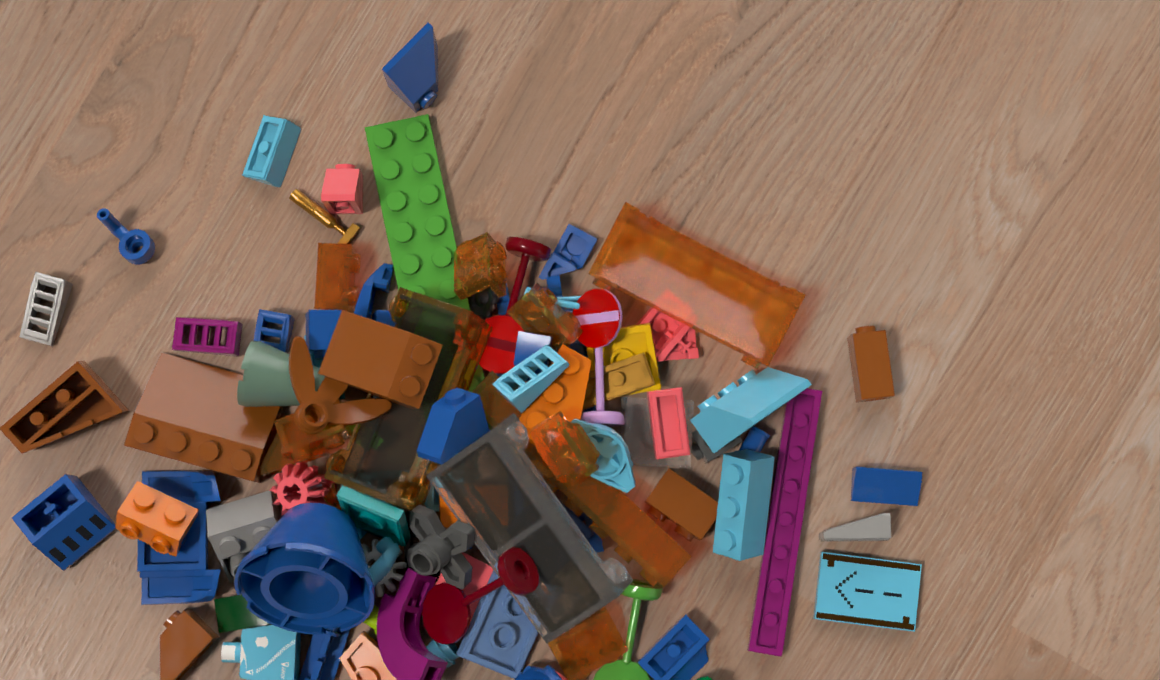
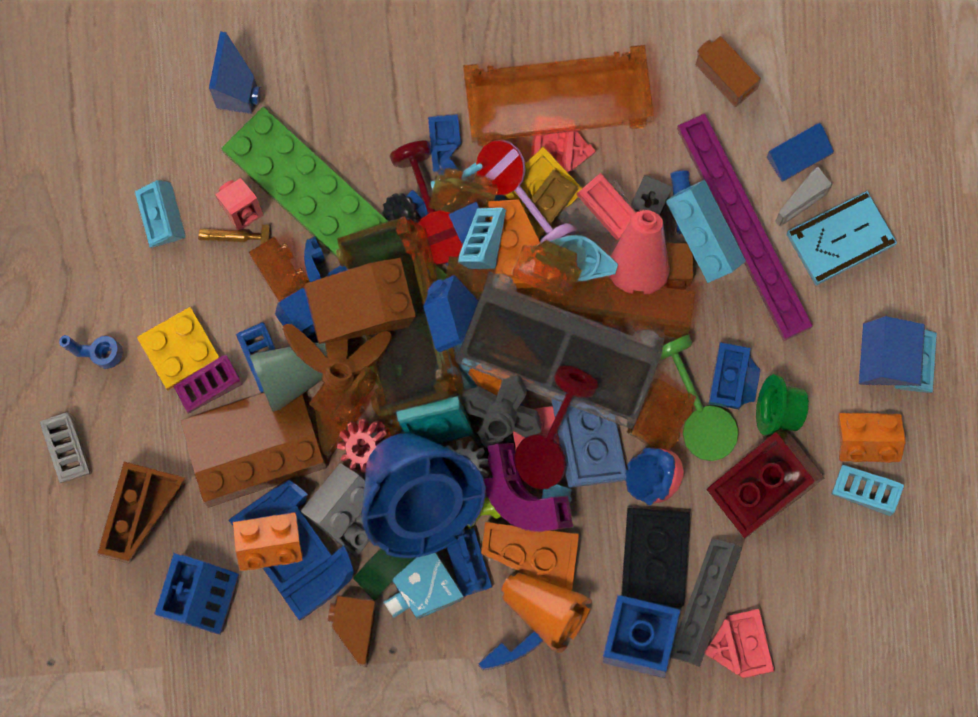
camera: 30 degrees left, 5 degrees down
(204, 286) = (178, 348): none -> yellow plate
(386, 561) = (465, 444): medium azure arm -> none
(480, 265) = (383, 190): clear orange bracket -> none
(662, 493) = (641, 255): none -> coral cone
(745, 405) = (656, 156): medium azure slope -> none

